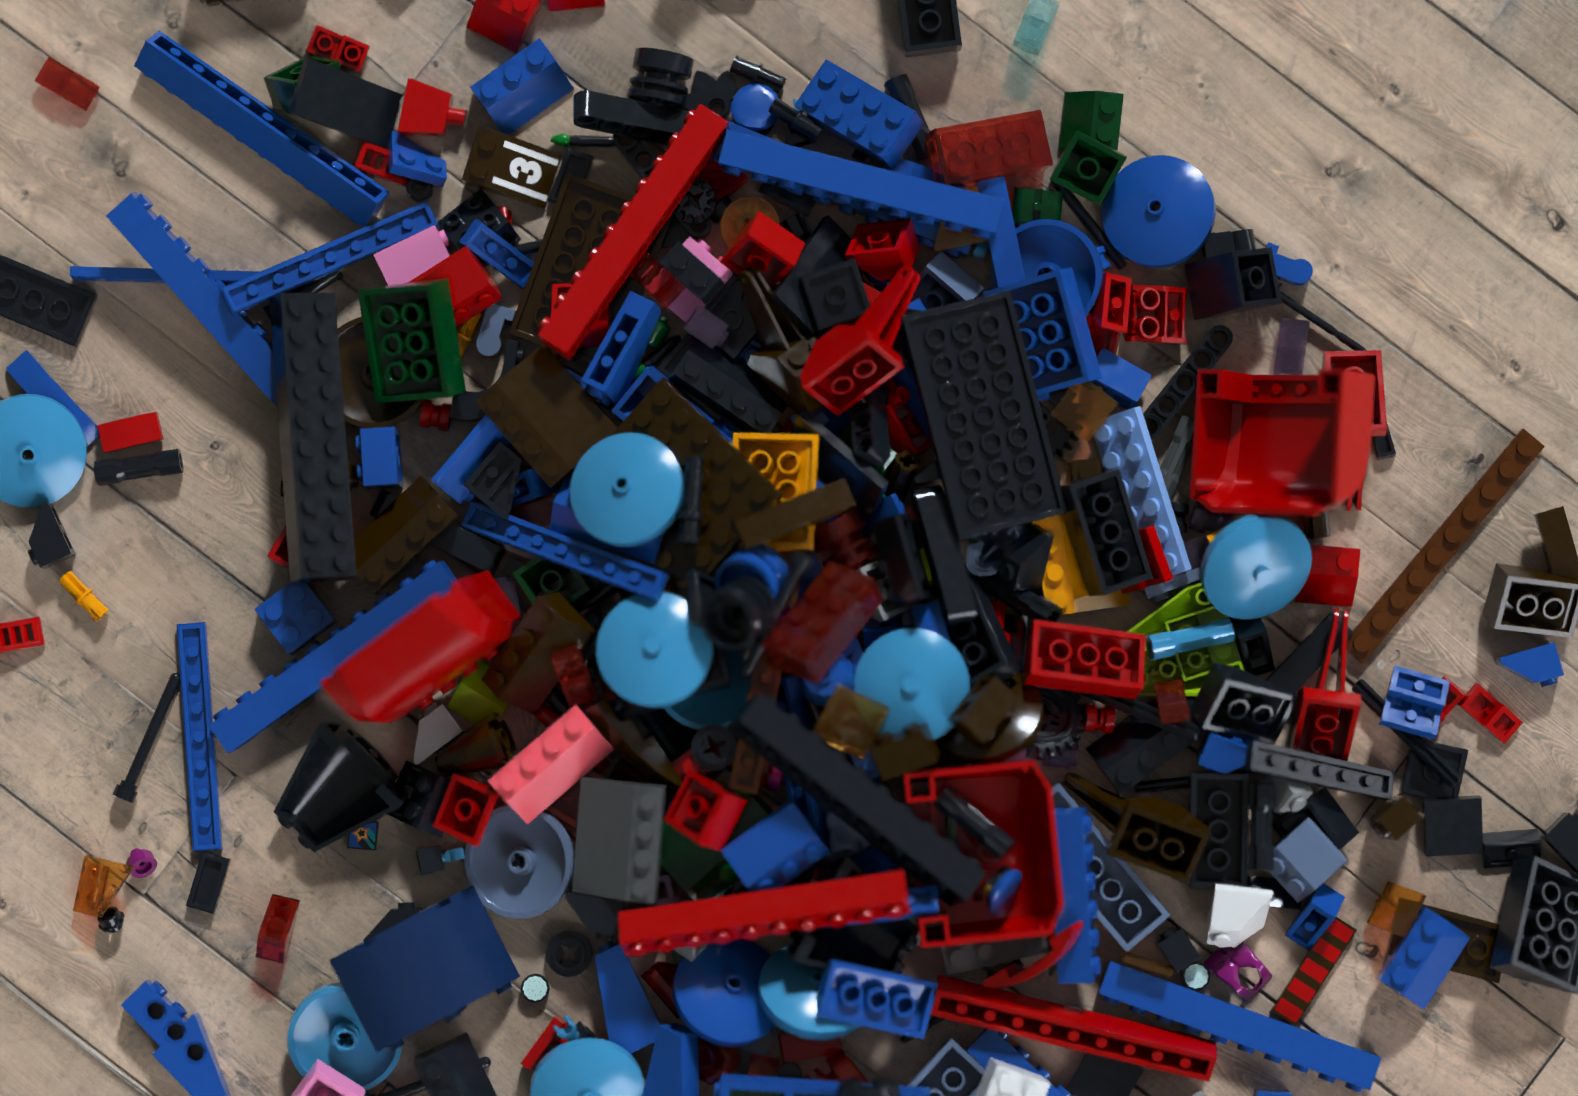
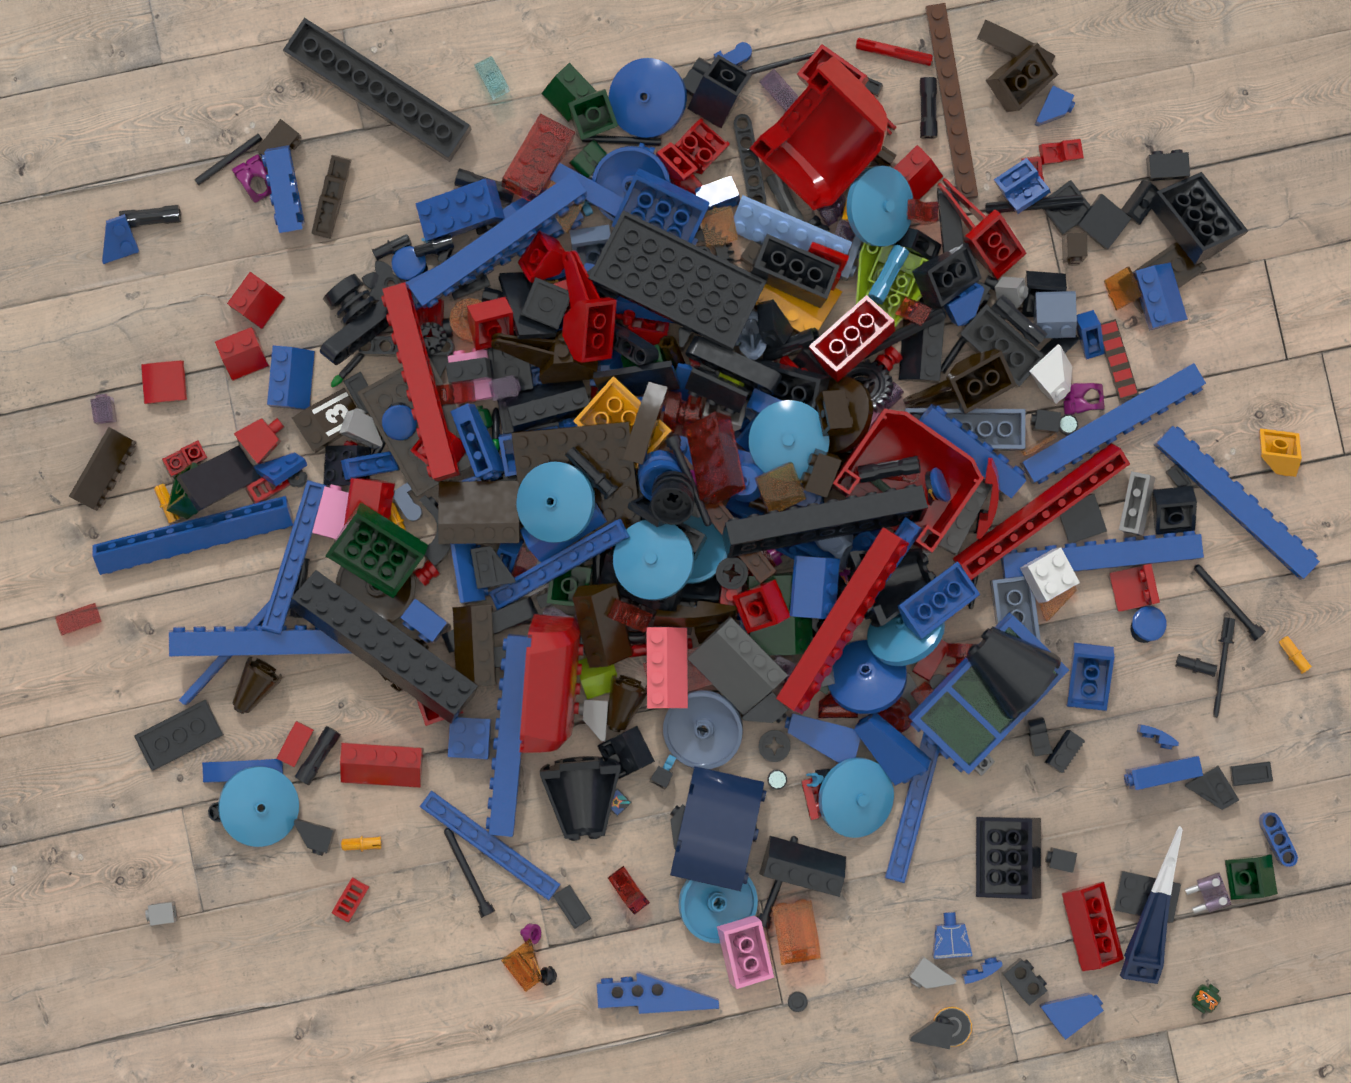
camera: 55 degrees left, 0 degrees up
(157, 334) = (254, 685): none -> dark brown cone
(186, 544) = (381, 764): none -> red slope
(276, 62) = (163, 497): none -> light orange axle
(466, 809) = (652, 733): red slope -> none
(531, 210) = (361, 428): none -> light grey slope
(571, 244) = (399, 421): none -> blue piece
(1291, 618) = (922, 212): none -> clear red slope
(1319, 770) = (1015, 265): black plate -> none
(1427, 513) = (928, 122): none -> black axle
(1442, 436) = (894, 51): none -> red axle

